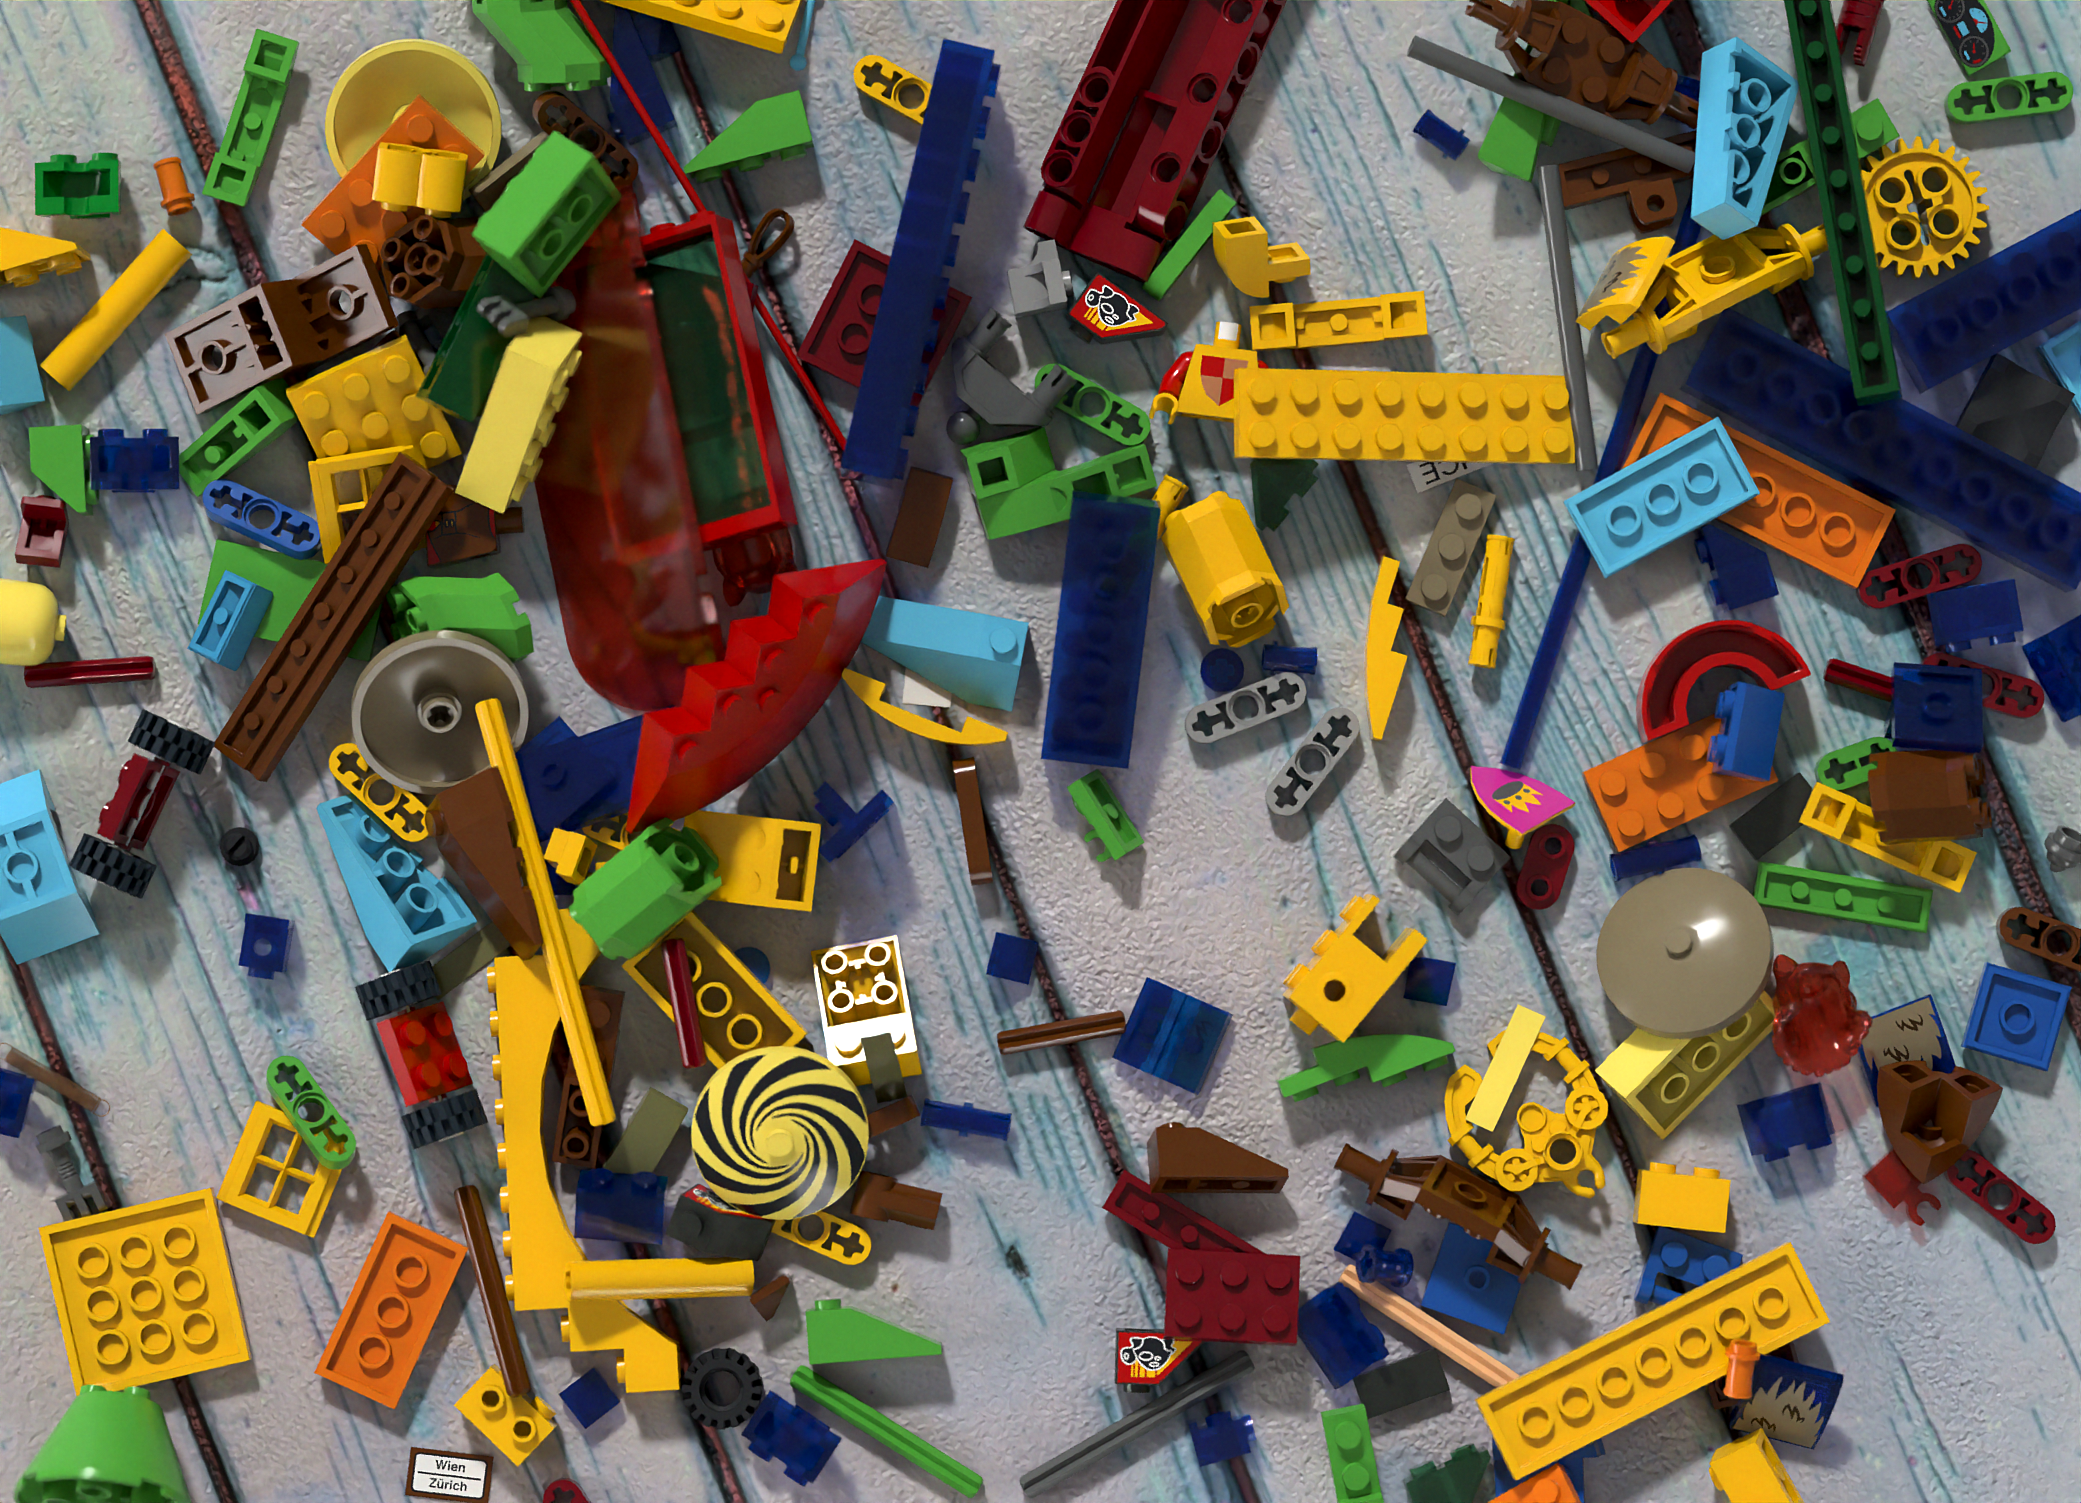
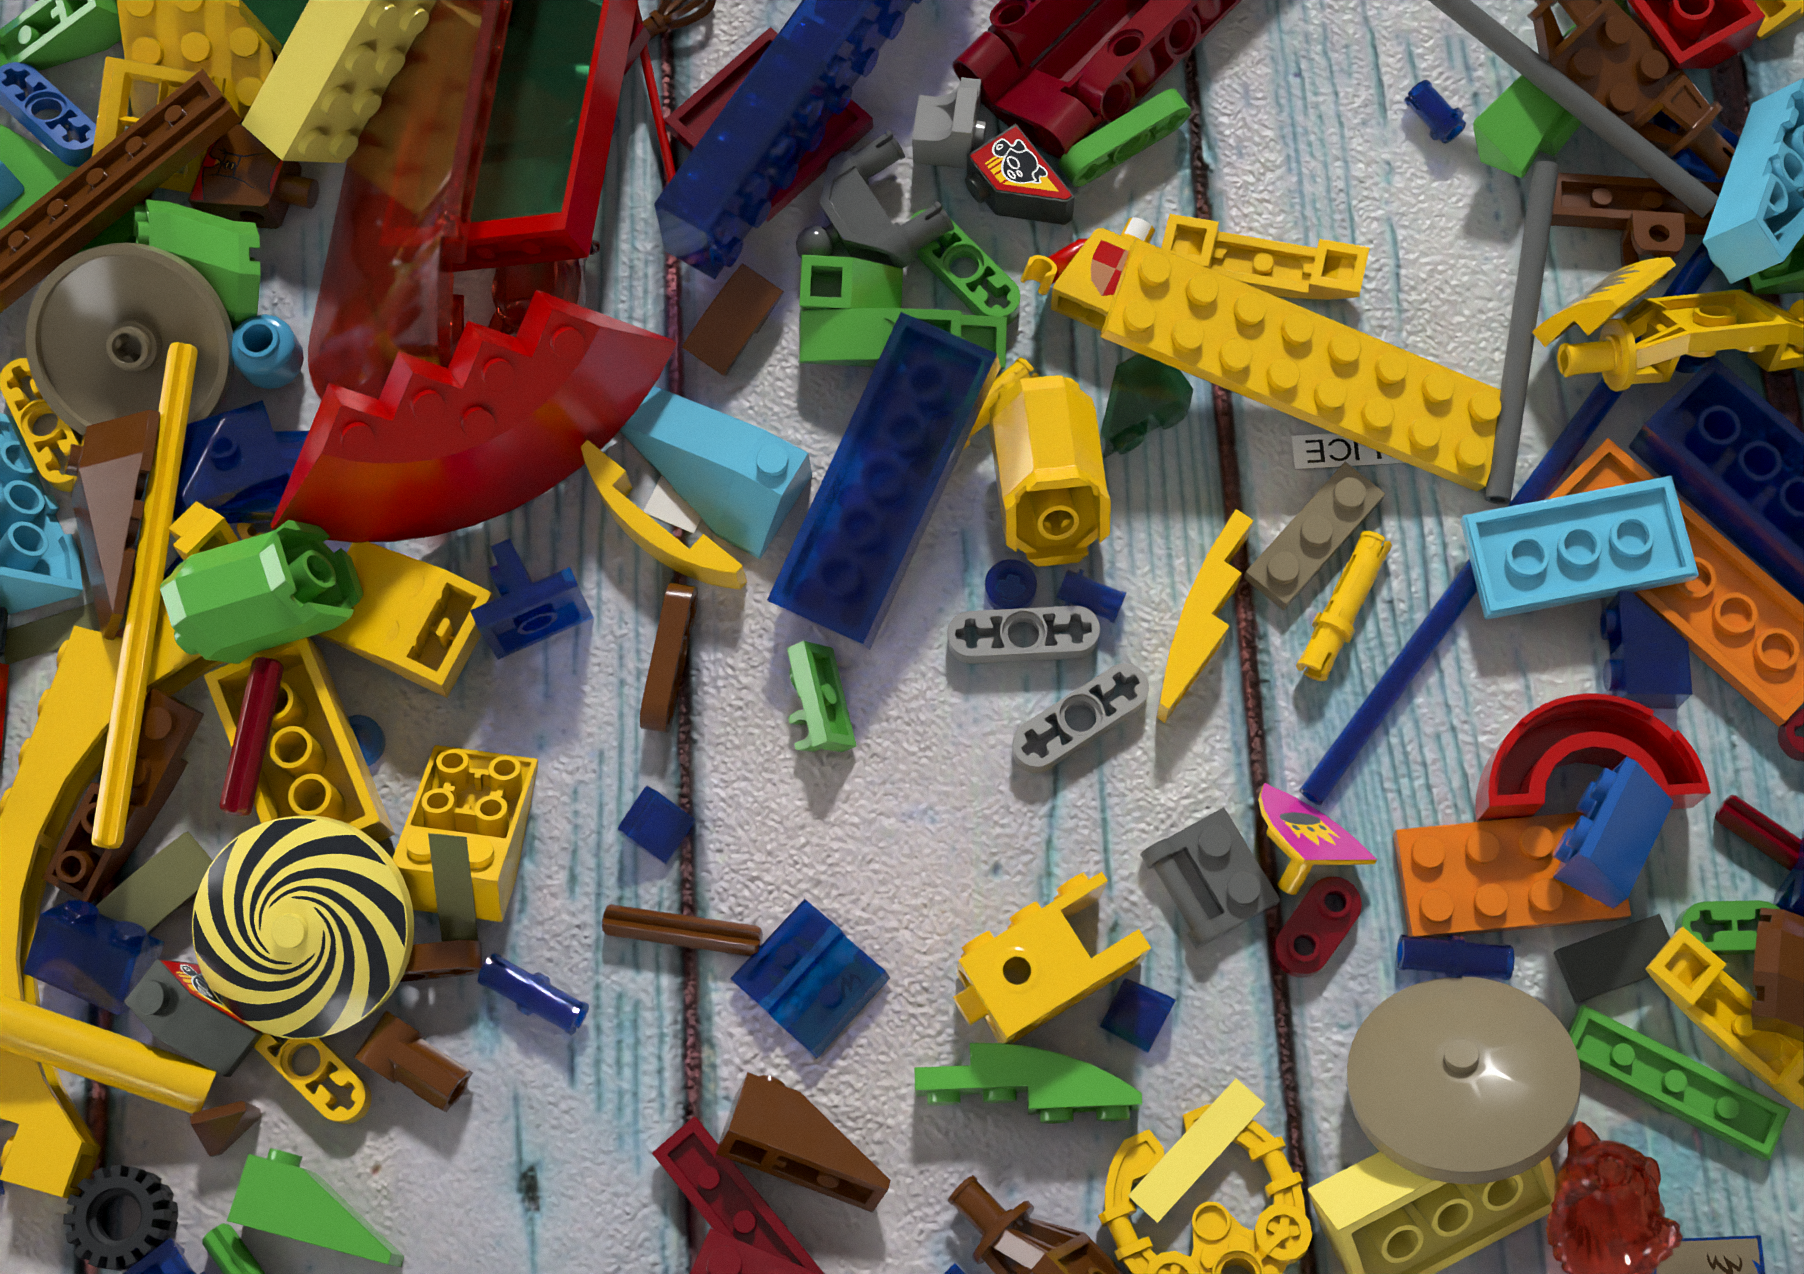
camera: 30 degrees right, 15 degrees down
(535, 663) = (267, 351): none -> dark azure head
(1248, 260) = (1179, 162): yellow brick -> none

